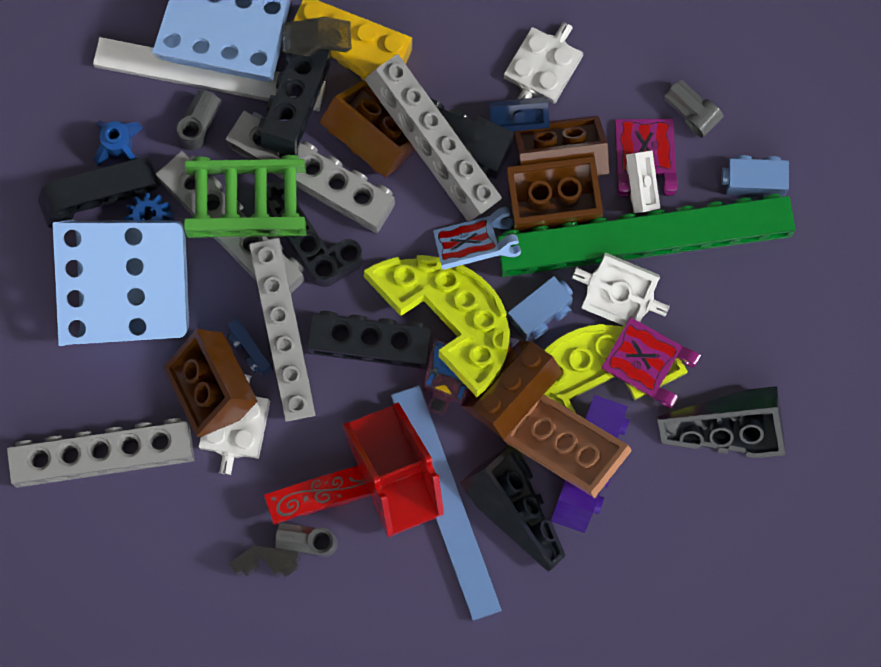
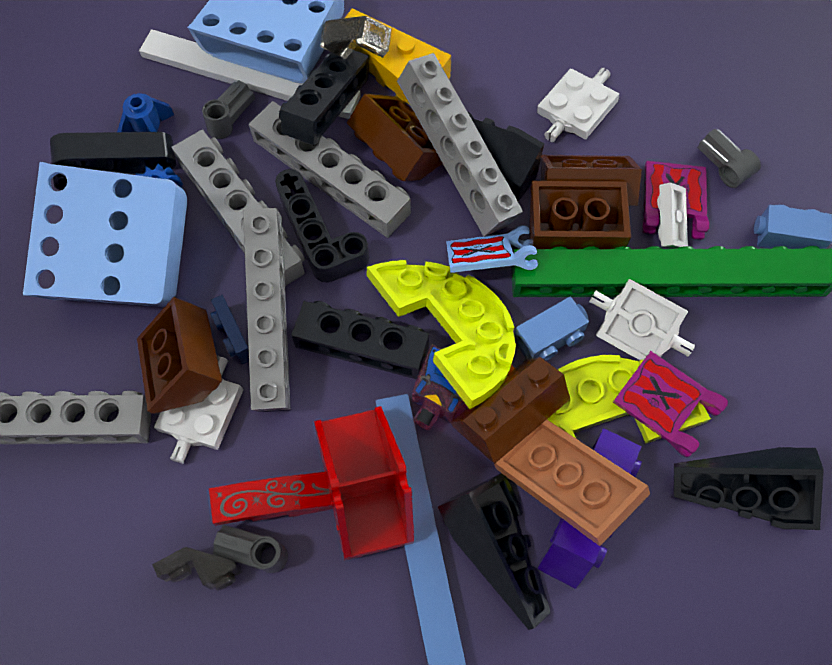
camera: 10 degrees right, 10 degrees down
(231, 224) = (234, 198): bright green fence -> none
(521, 114) = (558, 140): dark blue plate -> none

